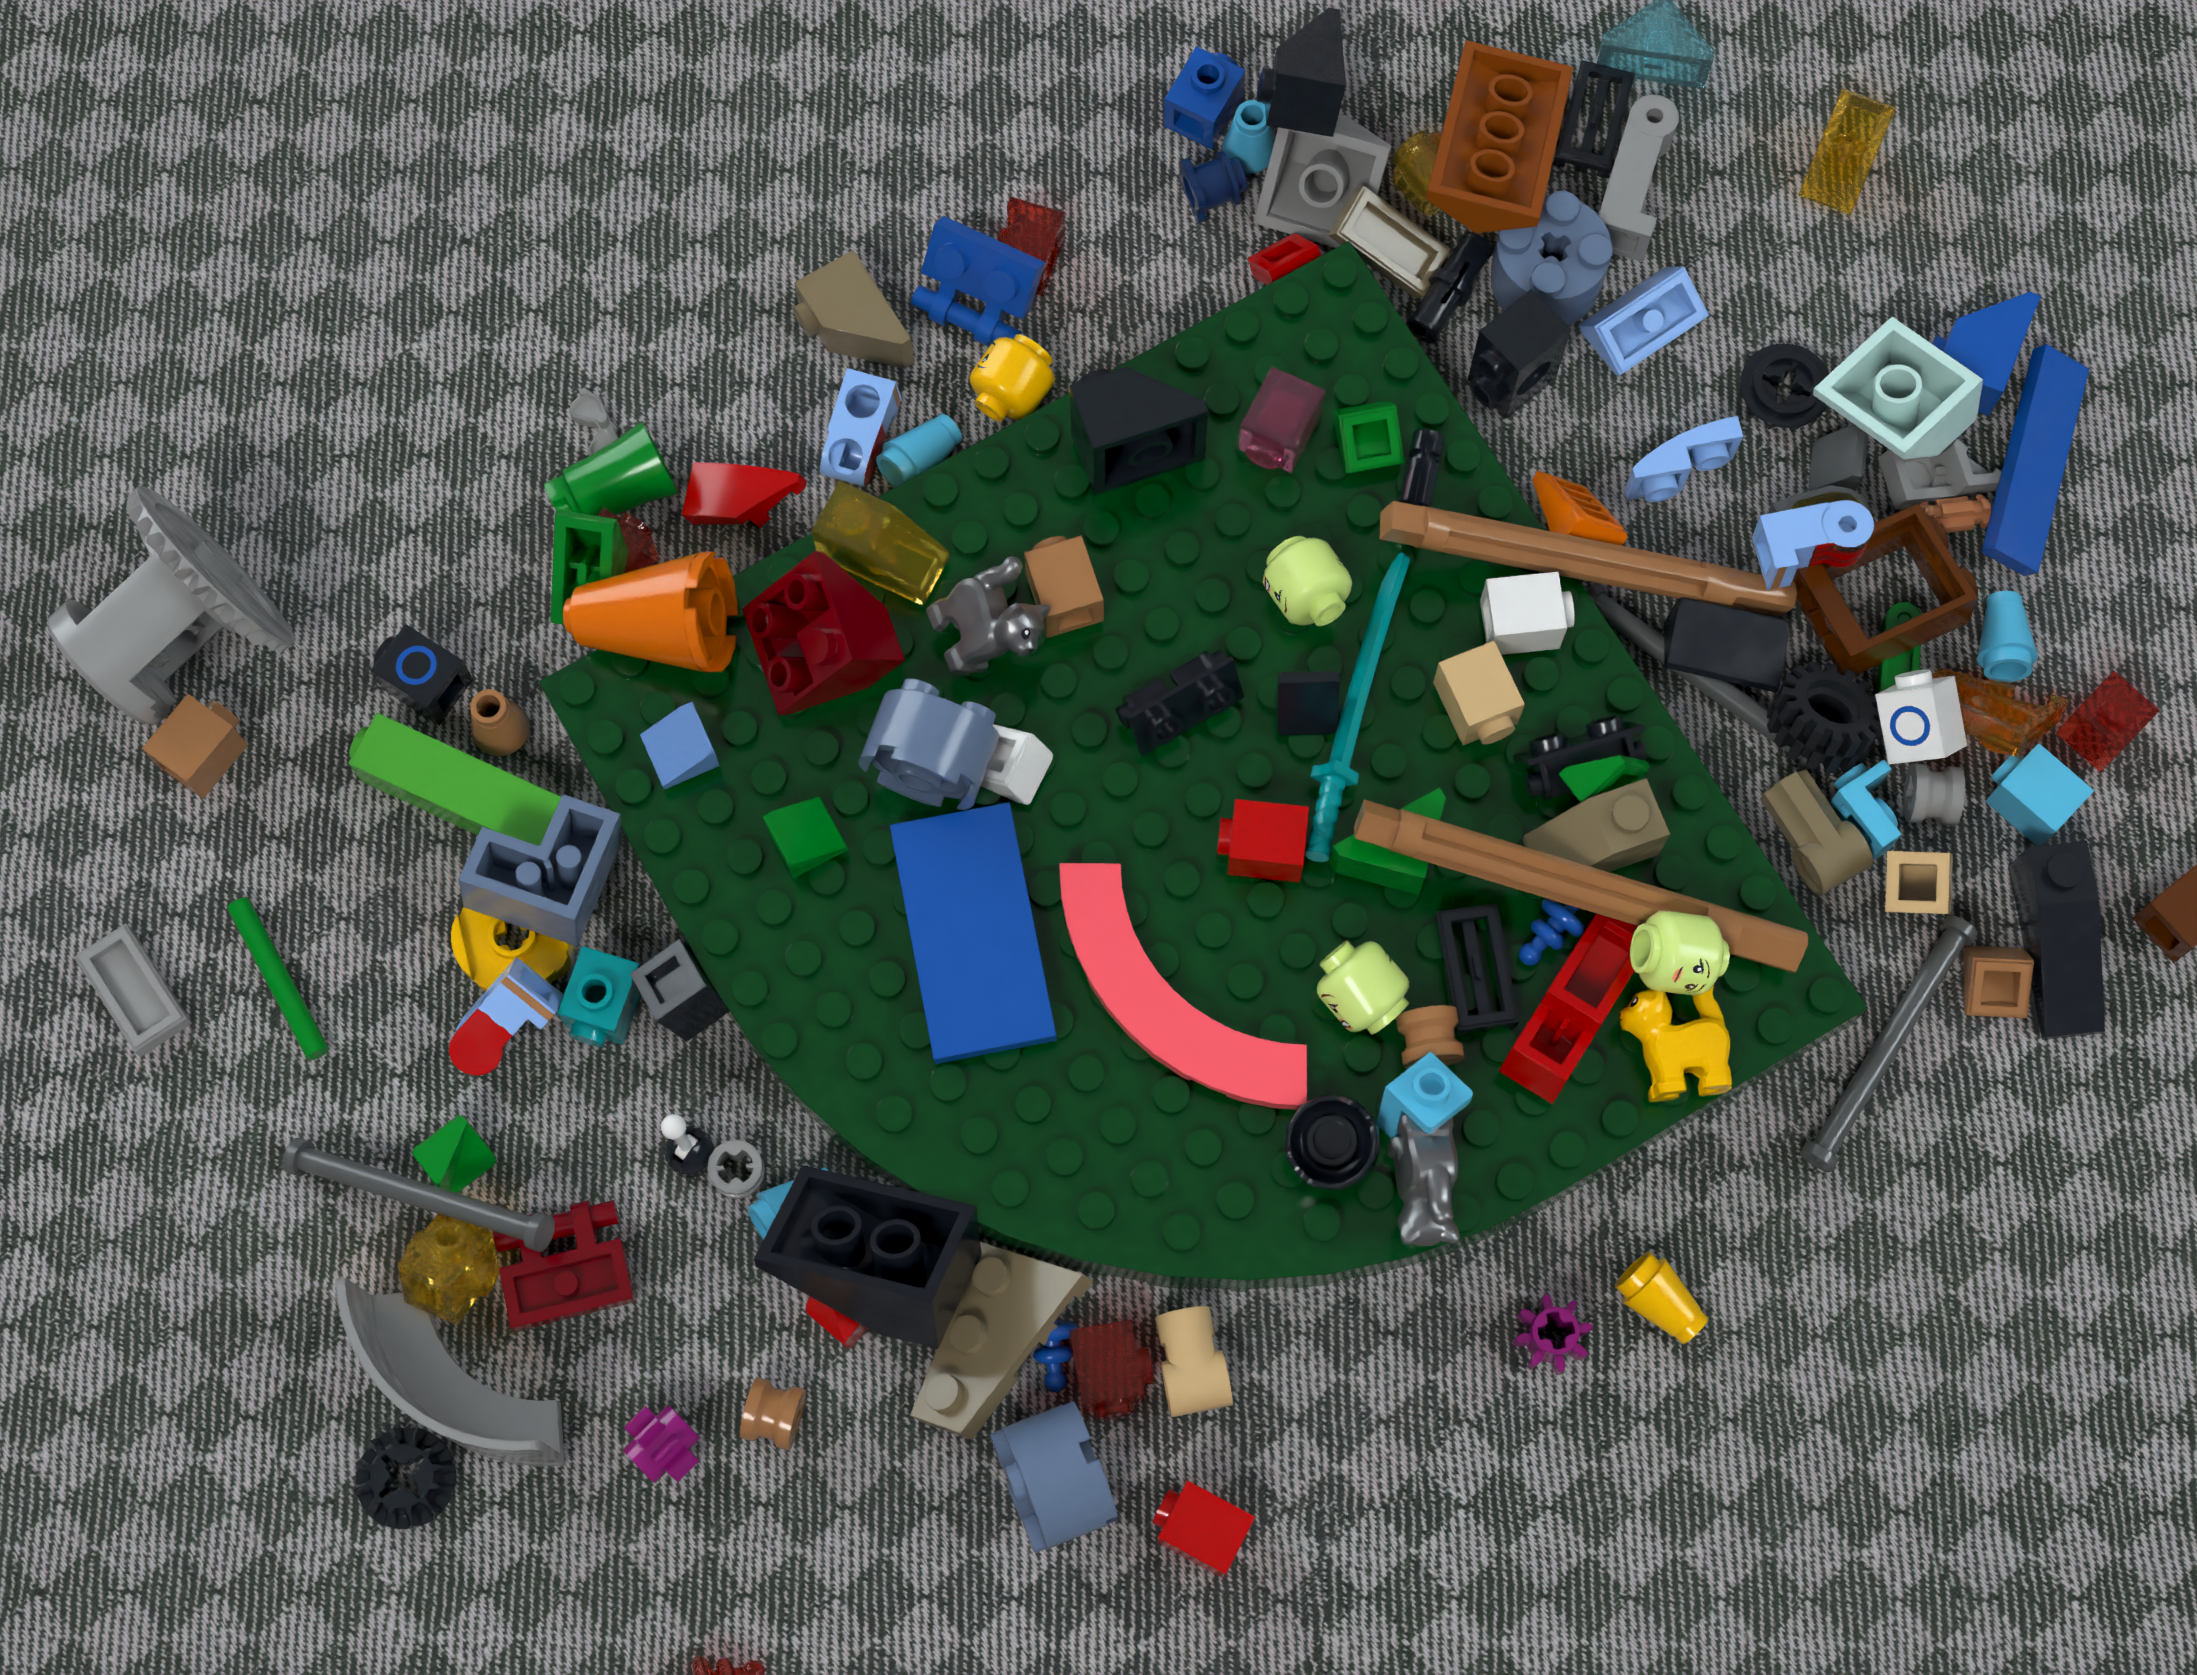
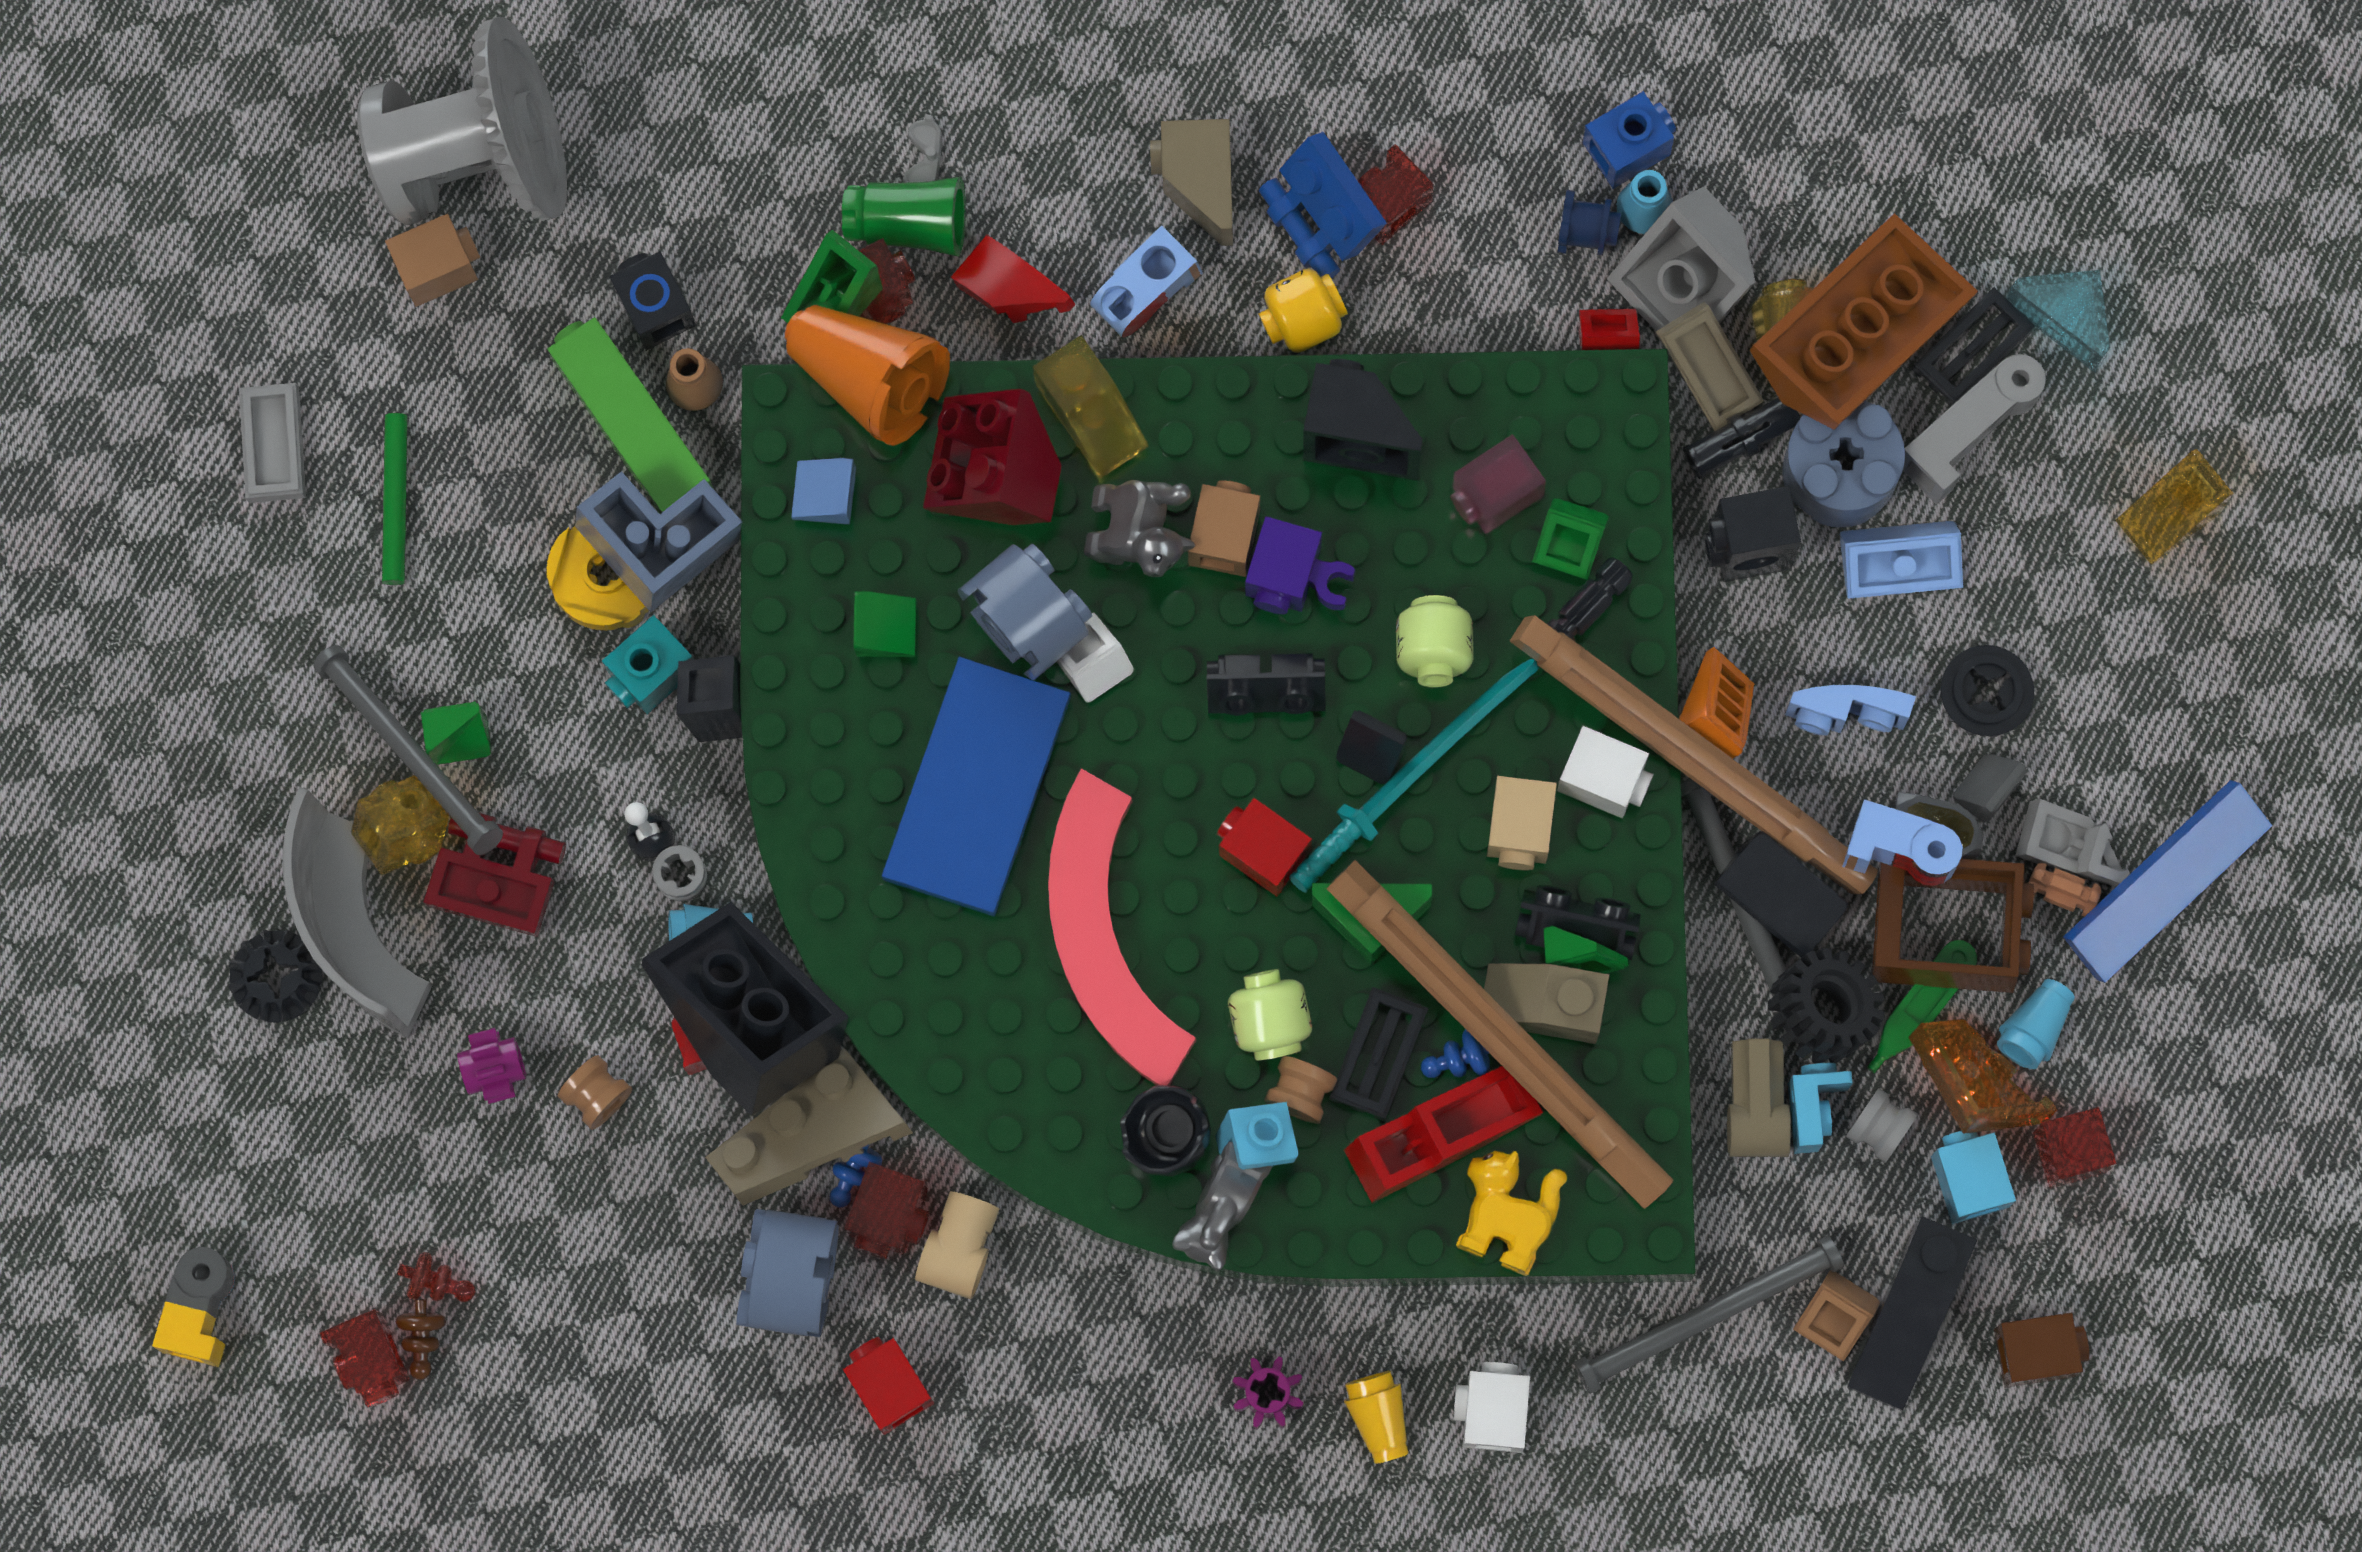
camera: 35 degrees right, 5 degrees up
(497, 1016) = (553, 634): leg -> none
(918, 449) = (1186, 331): medium azure cone -> none
(1141, 588) = (1288, 565): none -> dark purple brick
(1306, 78) = (1715, 177): black slope -> none
(1679, 953) = (1544, 1137): yellowish green head -> none
(1760, 1232) = (1493, 1408): none -> white brick
(1903, 392) = (2070, 758): light aqua slope -> none
(1919, 882) = (1814, 1194): tan brick -> none
(1921, 717) = (1902, 1053): white brick -> none
(1990, 343) = (2179, 757): blue slope -> none

